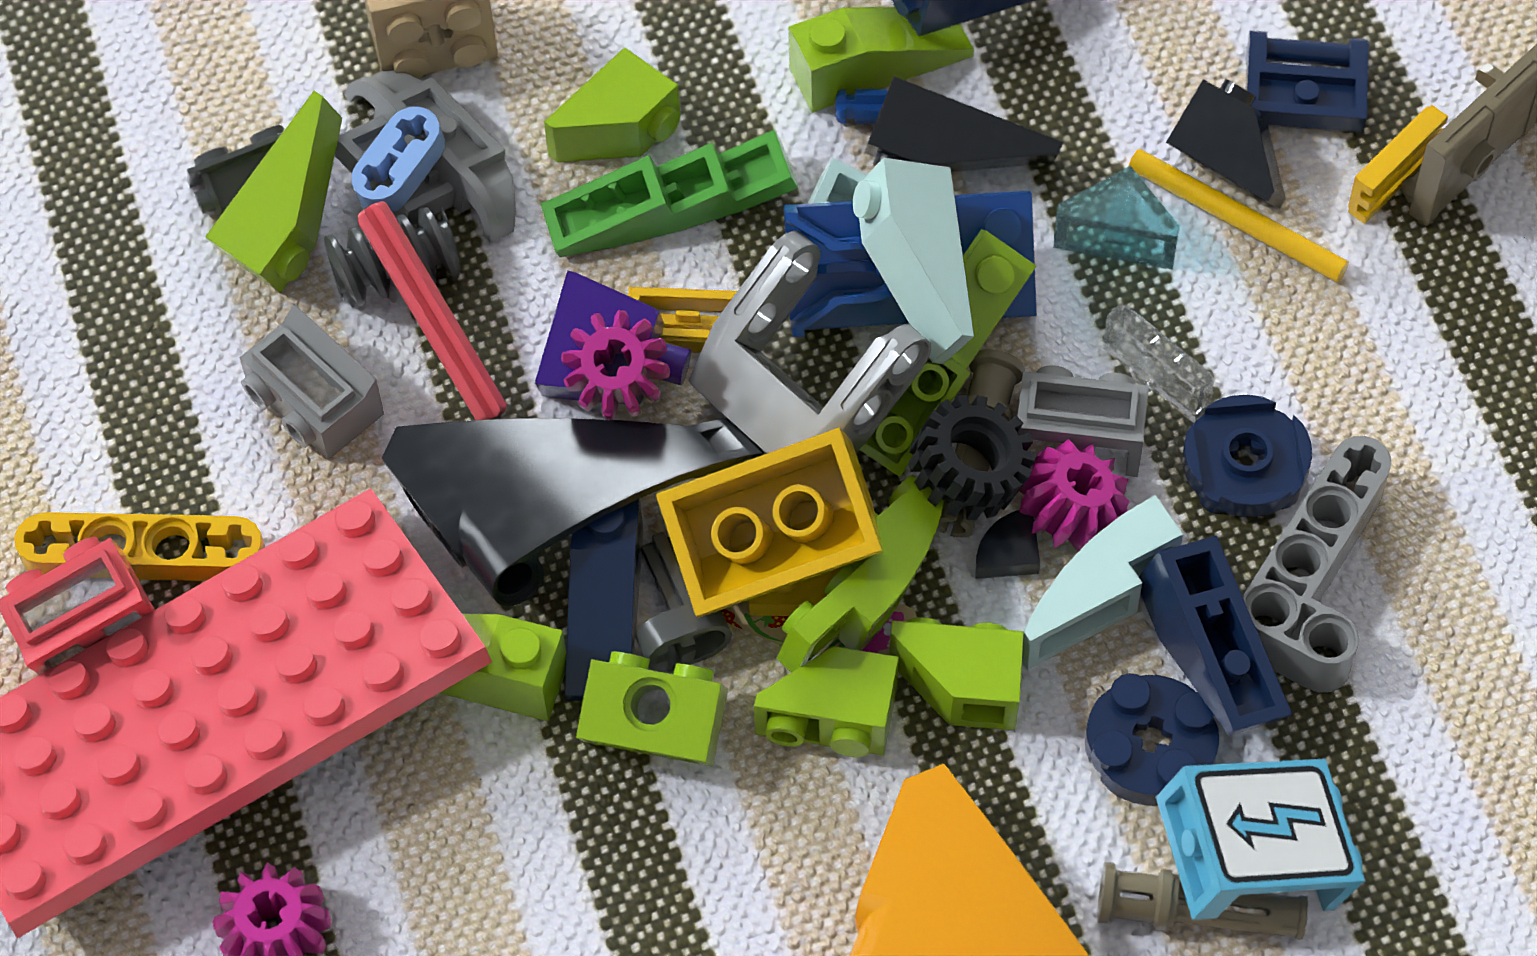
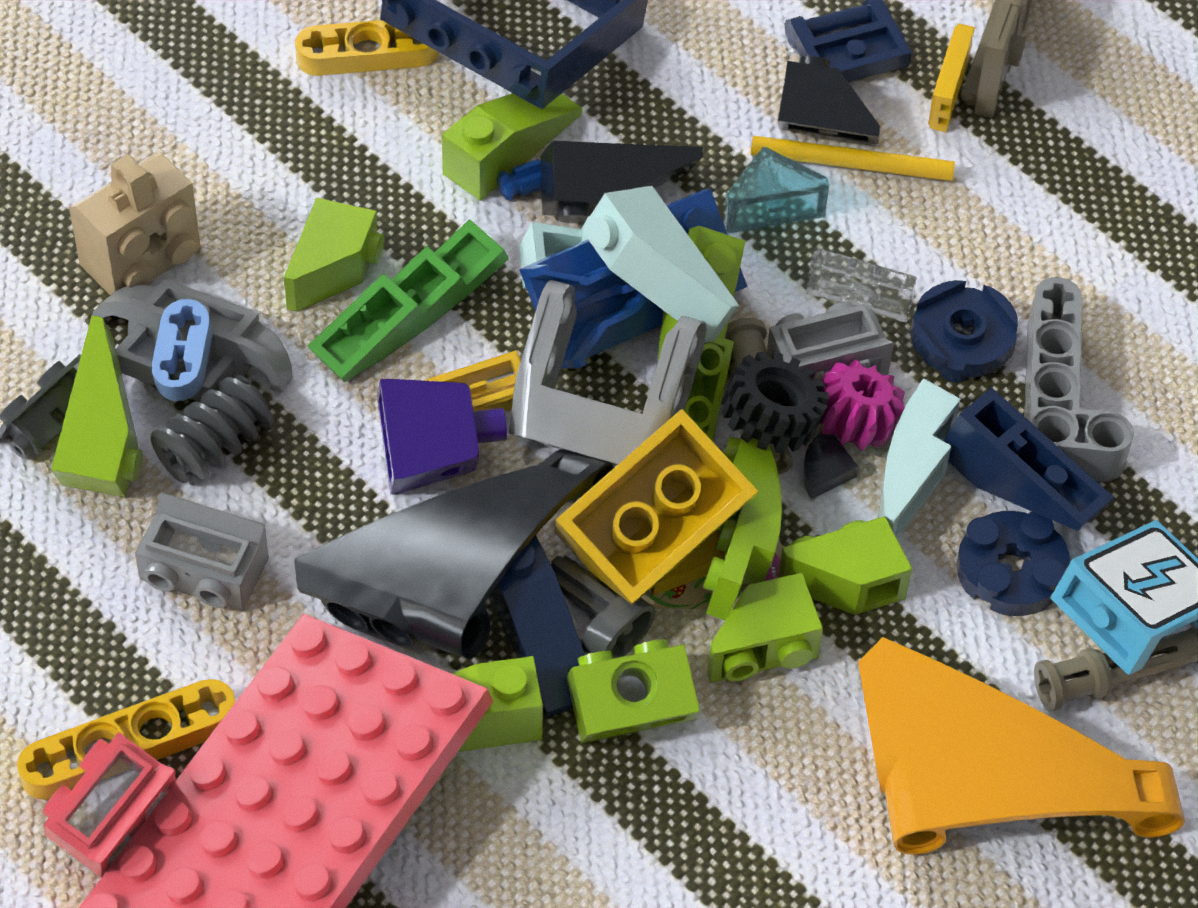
camera: 30 degrees left, 5 degrees down
(431, 312) = (277, 456): coral axle -> none
(630, 380) = (471, 418): dark pink gear -> none

